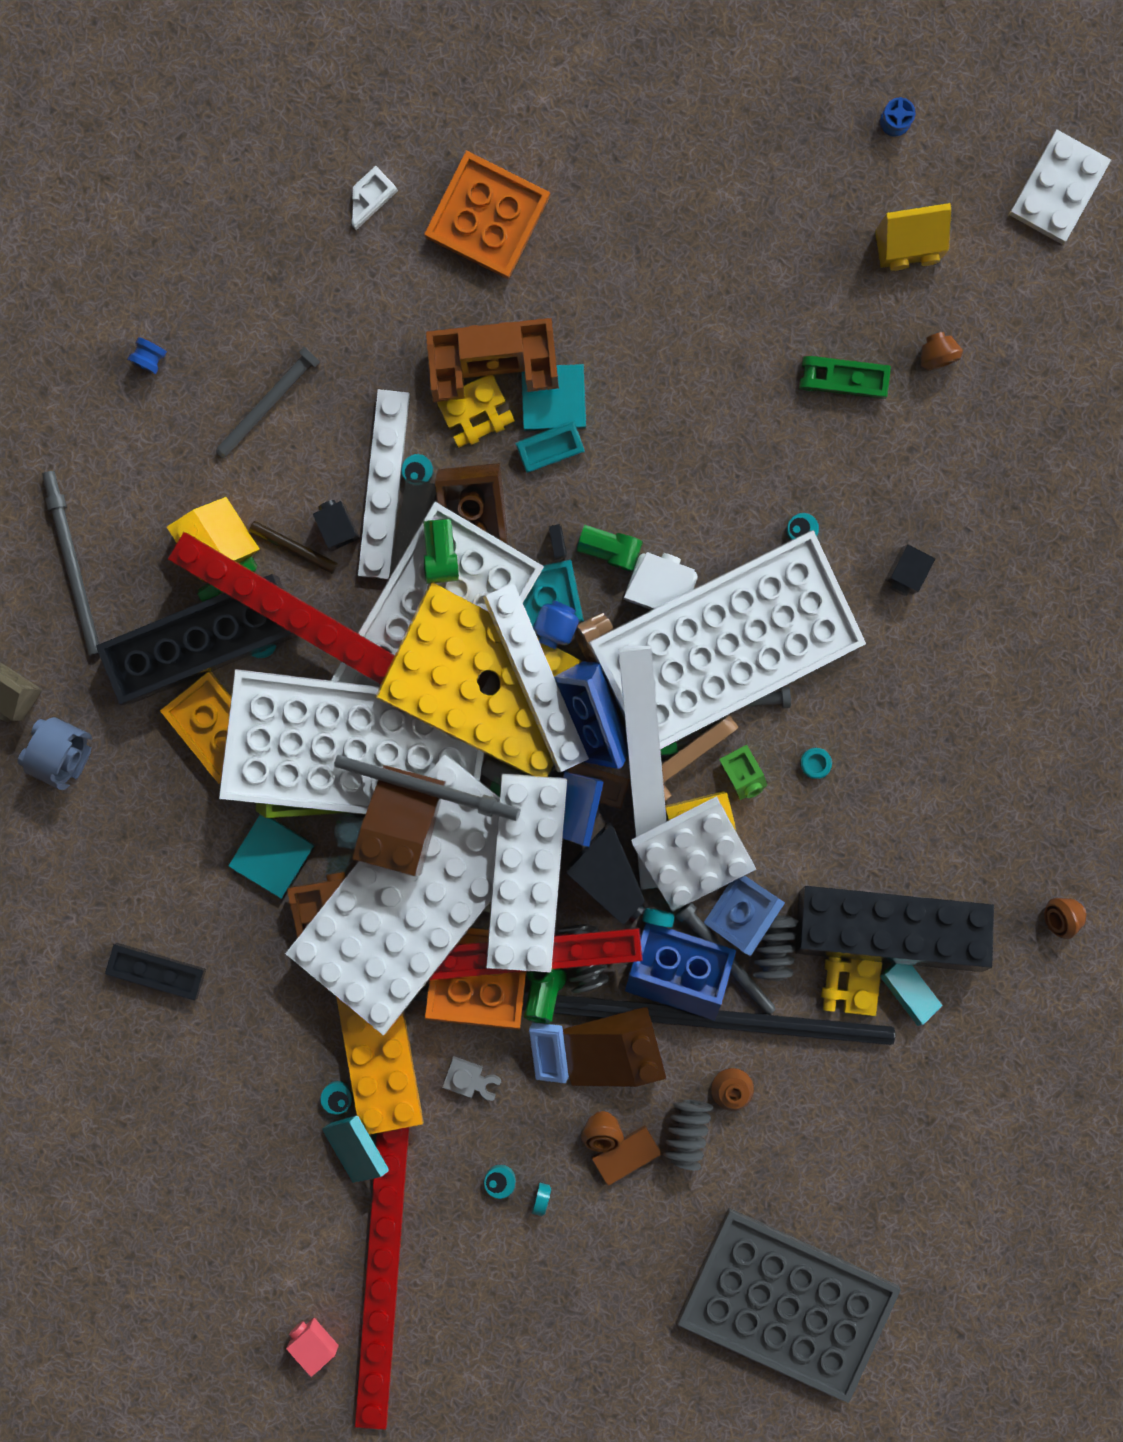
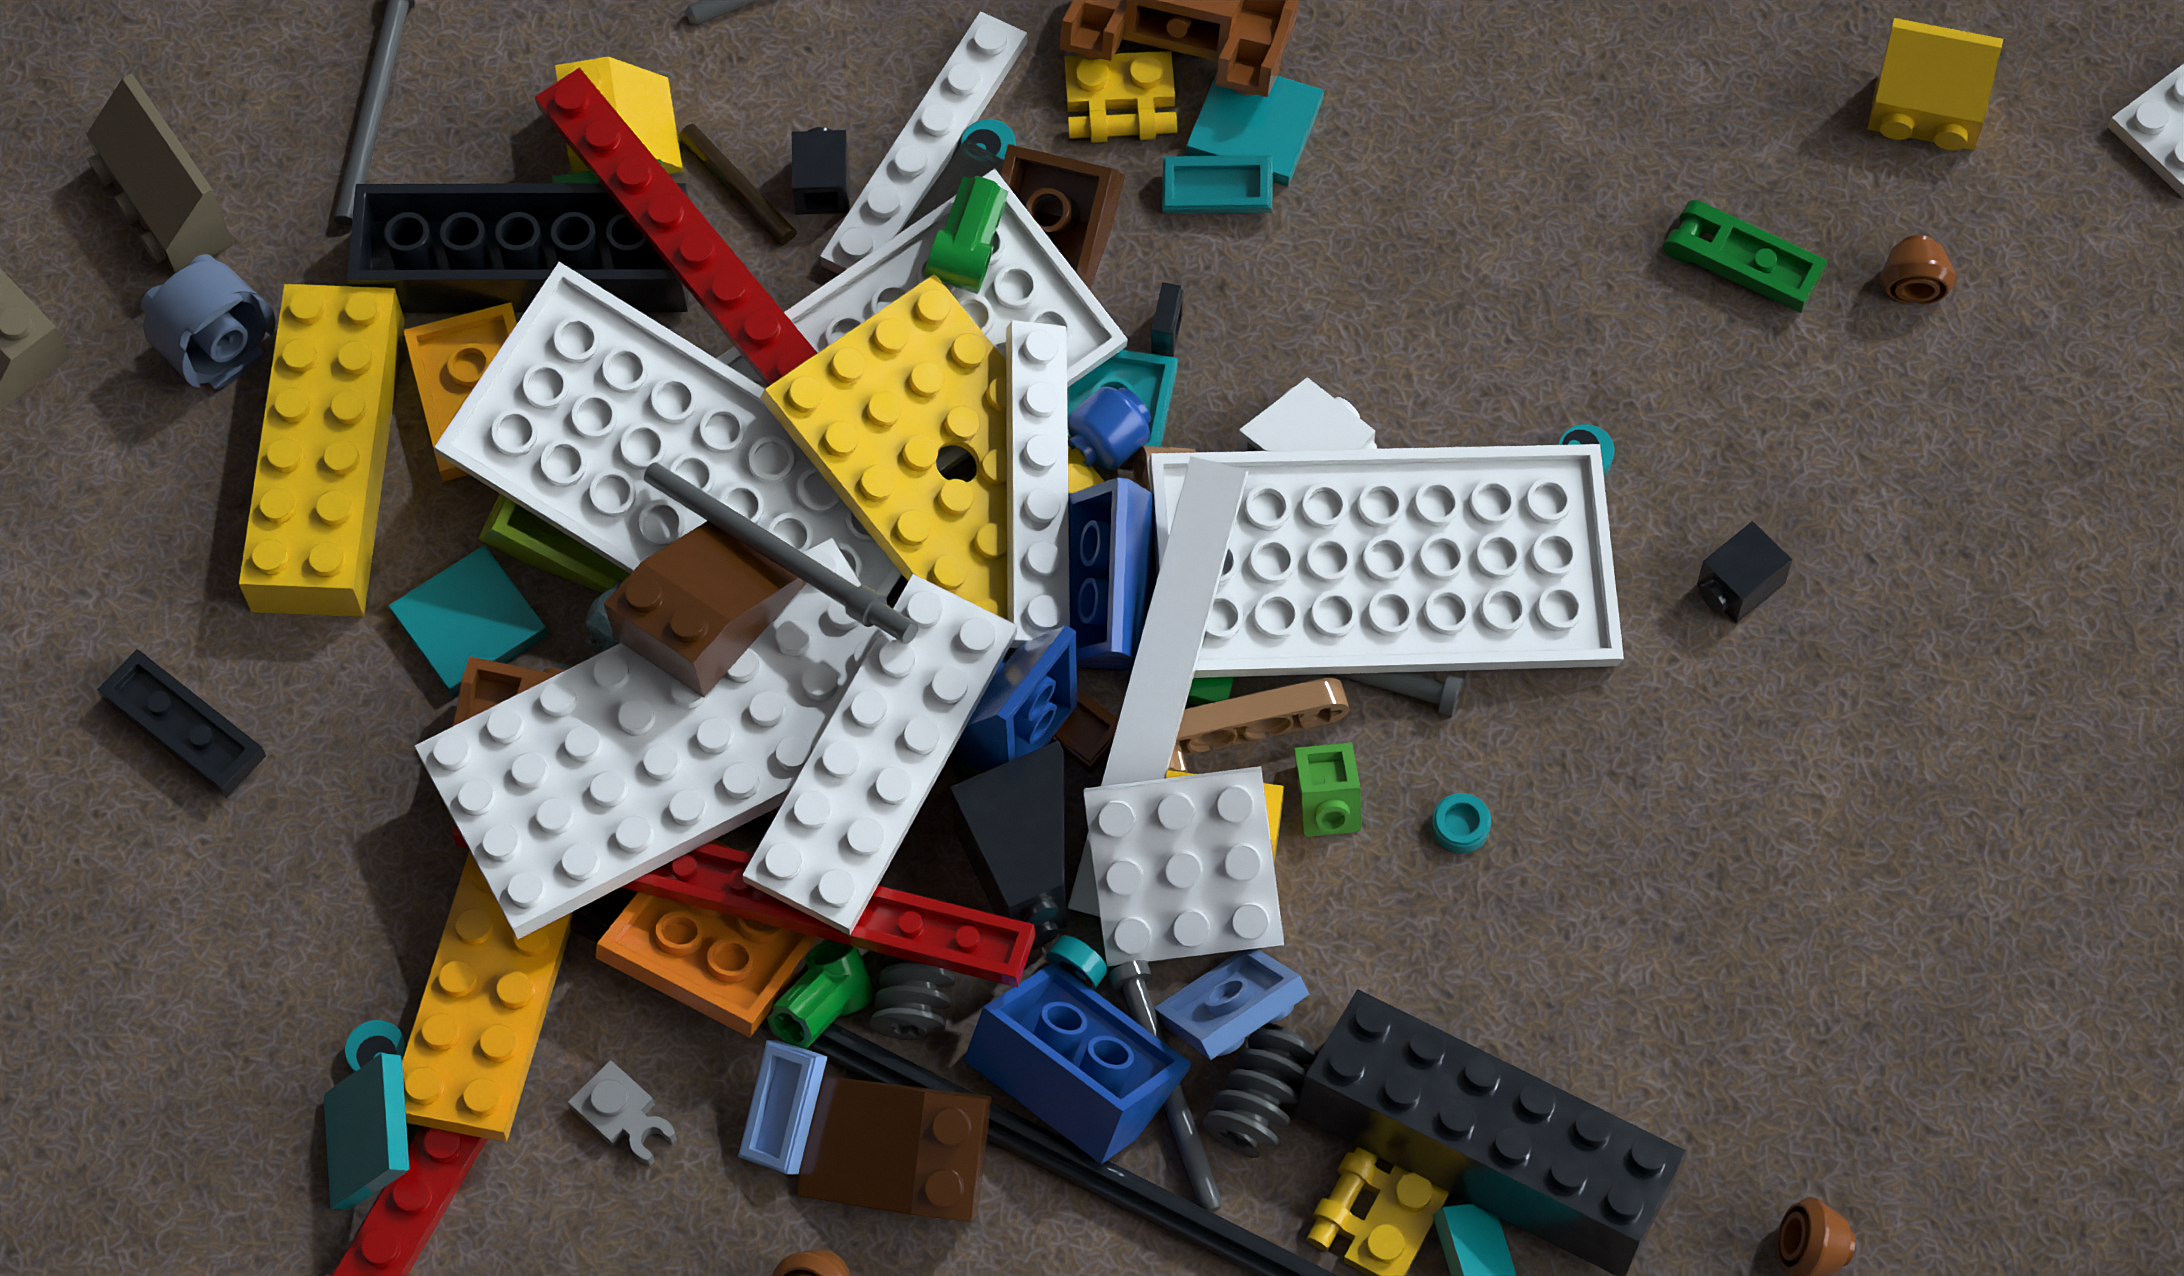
camera: 25 degrees right, 25 degrees down
(151, 795) = (322, 451): none -> yellow brick
(615, 549) = (1258, 368): green piece -> none

